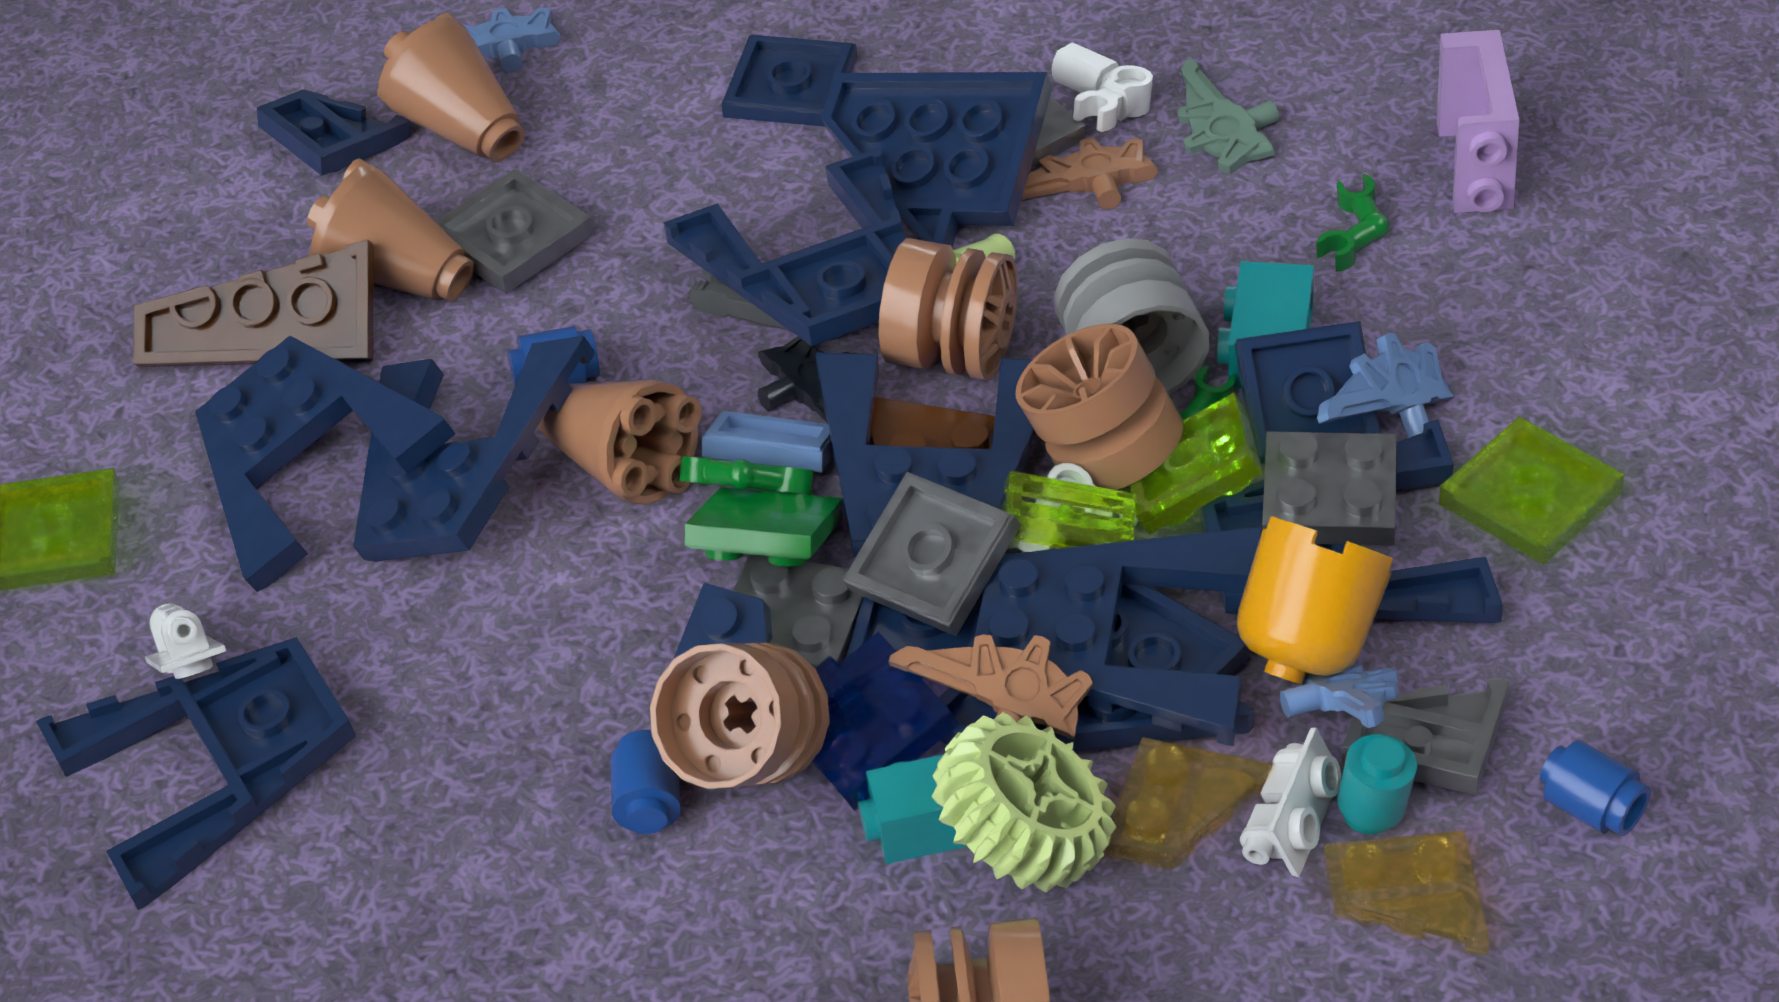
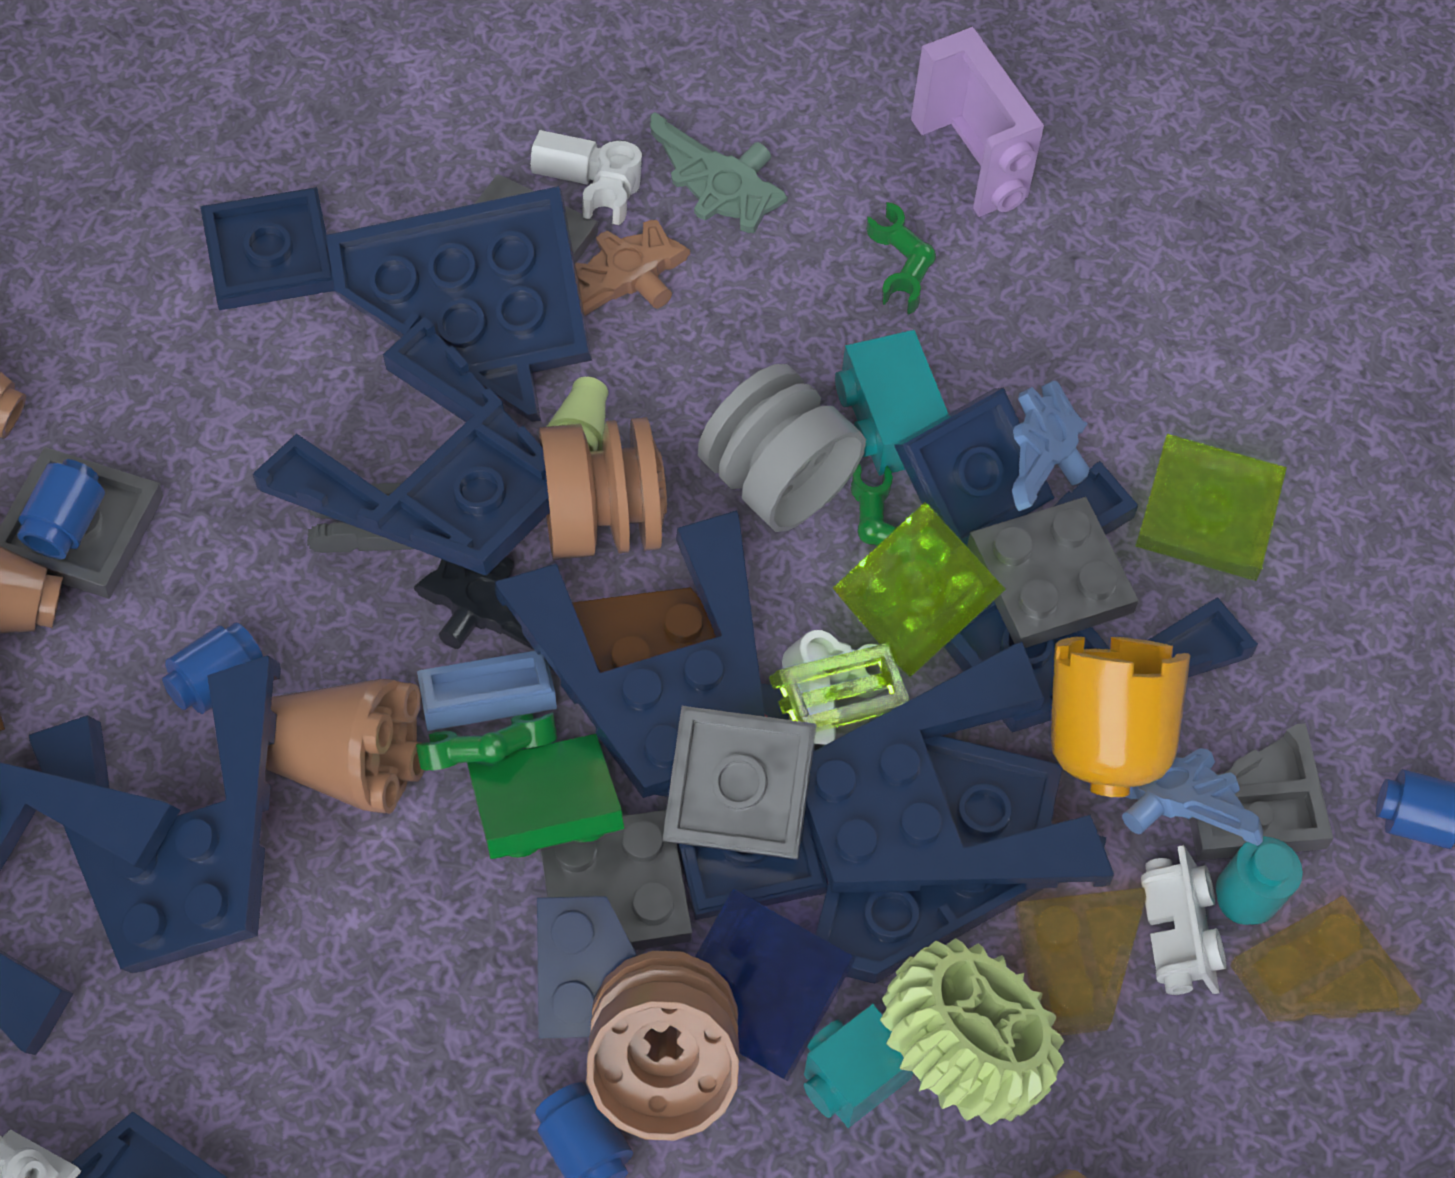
camera: 35 degrees left, 15 degrees up
(494, 205) = (60, 508): none -> blue brick
(1005, 678) = (893, 900): nougat piece -> none
(1100, 405) = (811, 559): nougat wheel -> none

